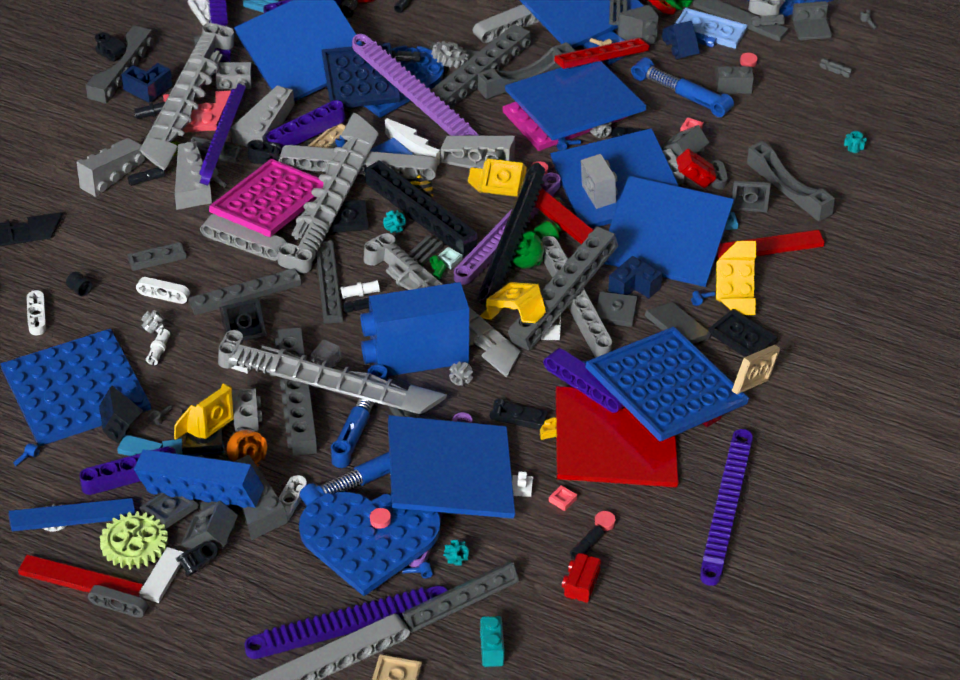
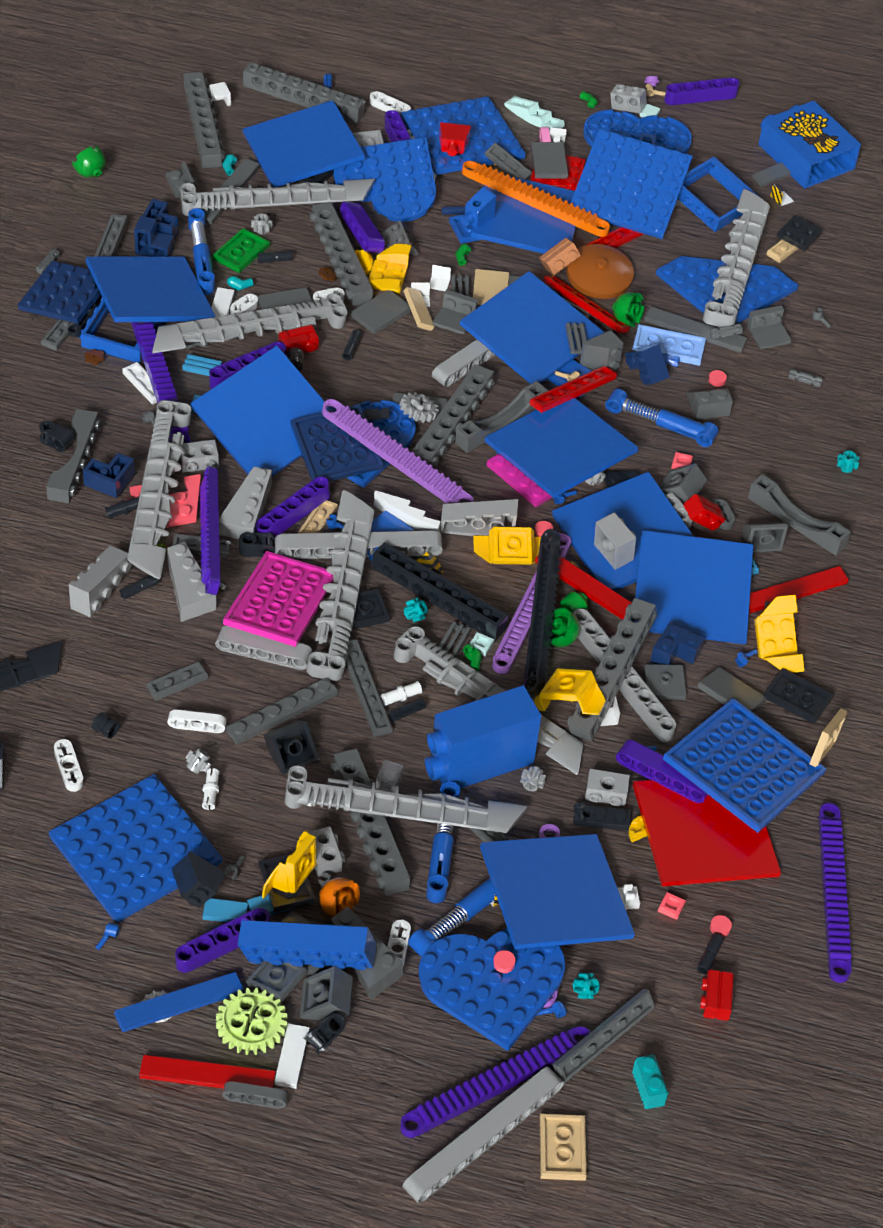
camera: 15 degrees left, 5 degrees up
(530, 389) = (607, 787): none -> light grey brick

